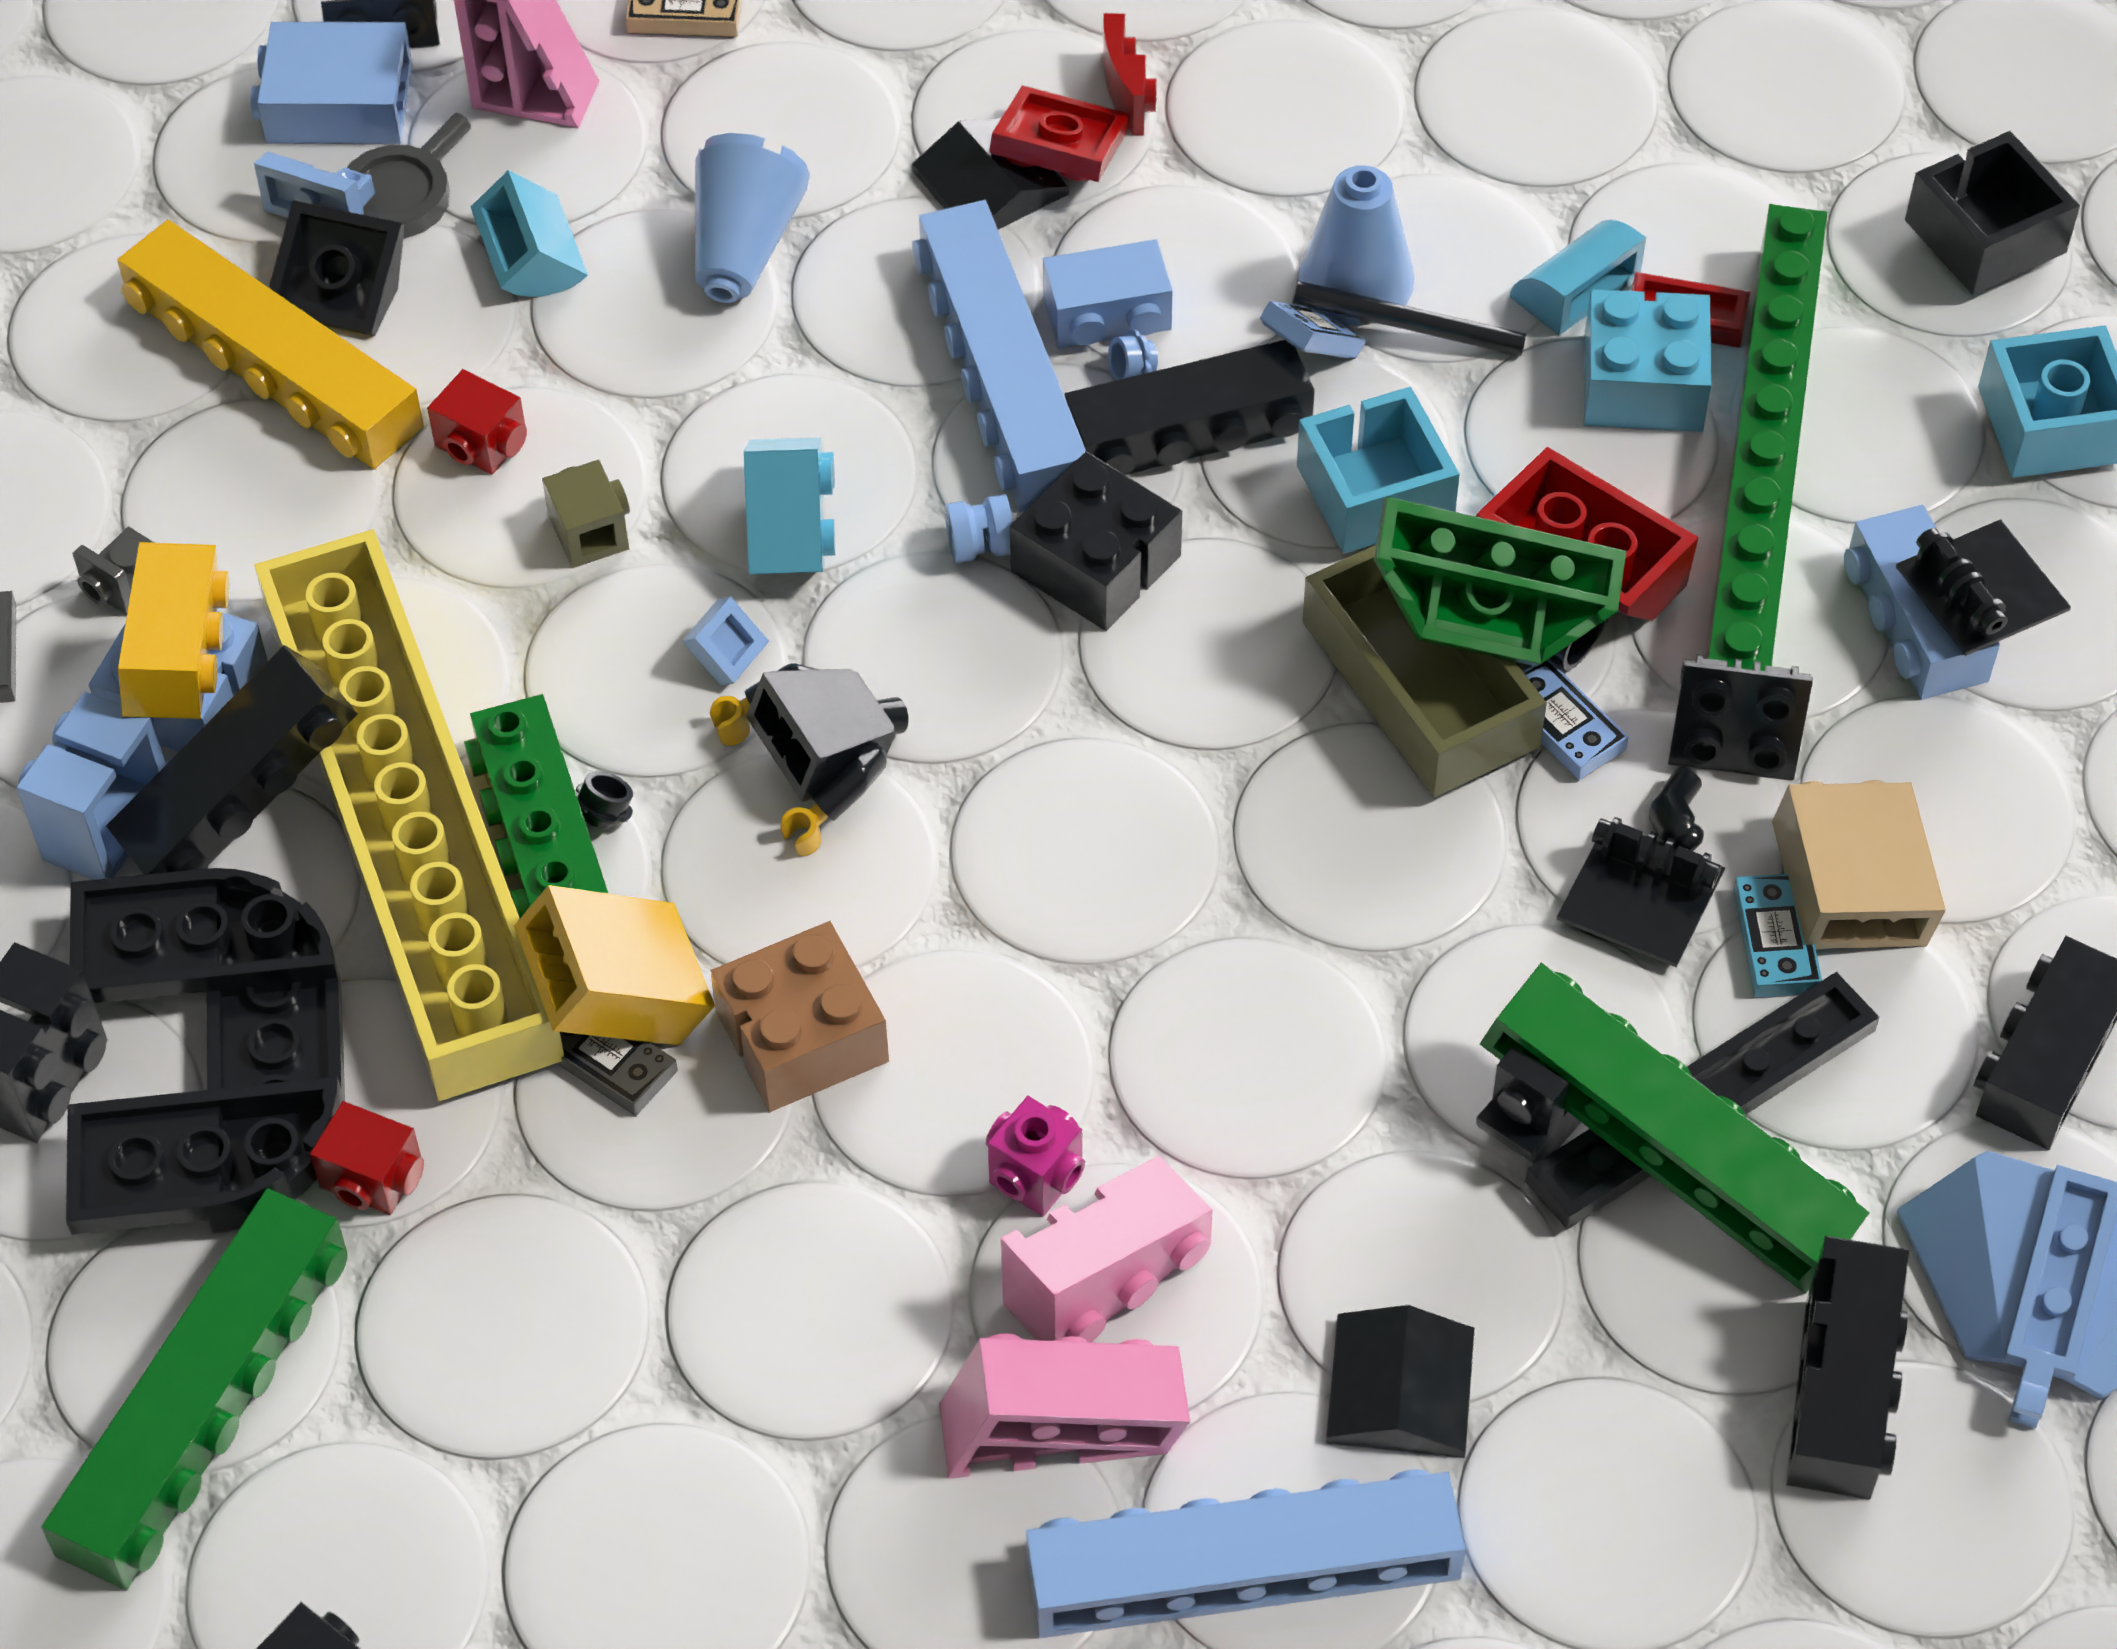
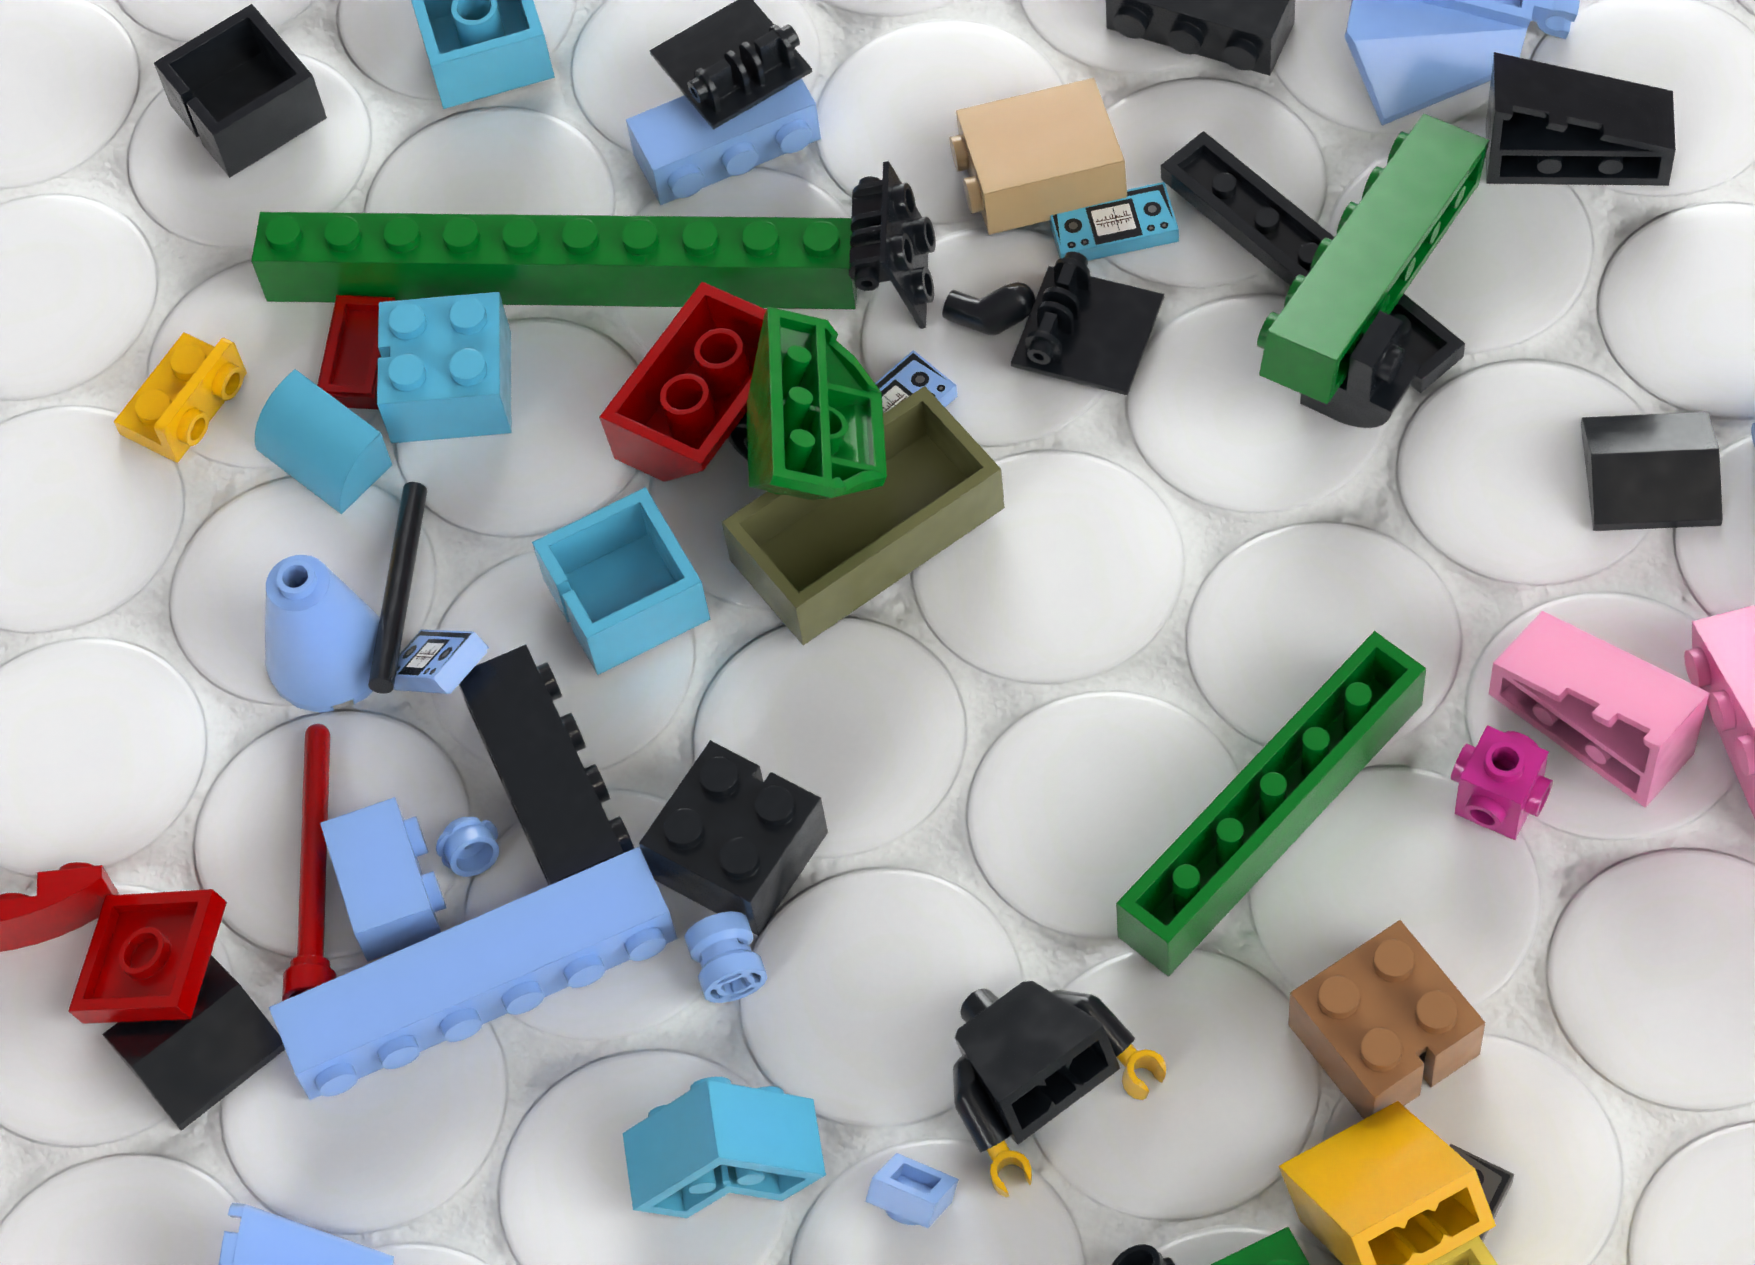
camera: 90 degrees left, 5 degrees up
(1027, 246) = (310, 965): none -> red piece
(1048, 954) = (1270, 803): none -> green brick
(1648, 179) = (182, 396): none -> yellow bracket

